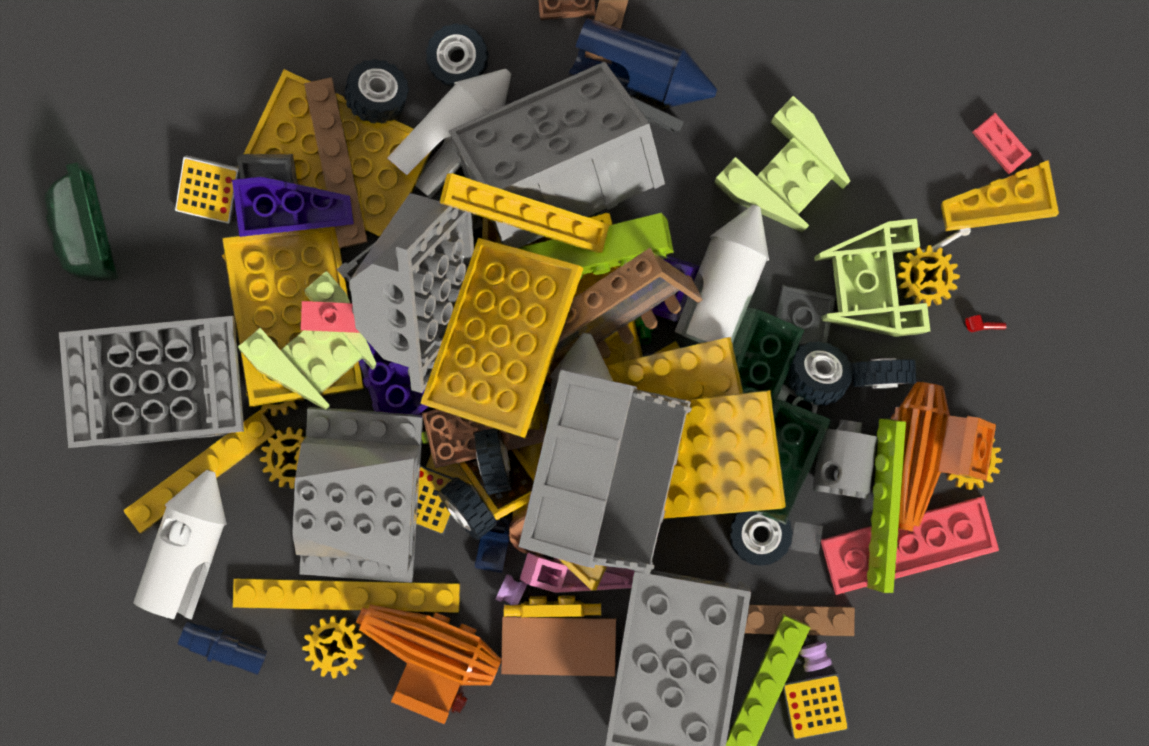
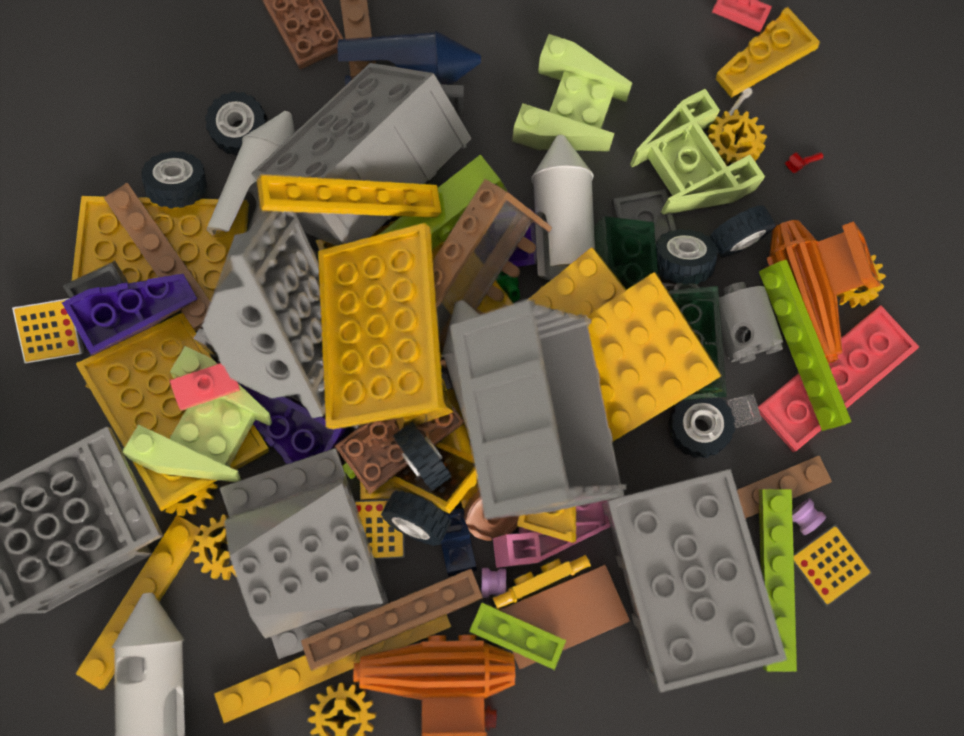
camera: 30 degrees left, 10 degrees down
(410, 585) = (391, 620): none -> medium nougat plate
(511, 646) = (518, 636): none -> lime plate

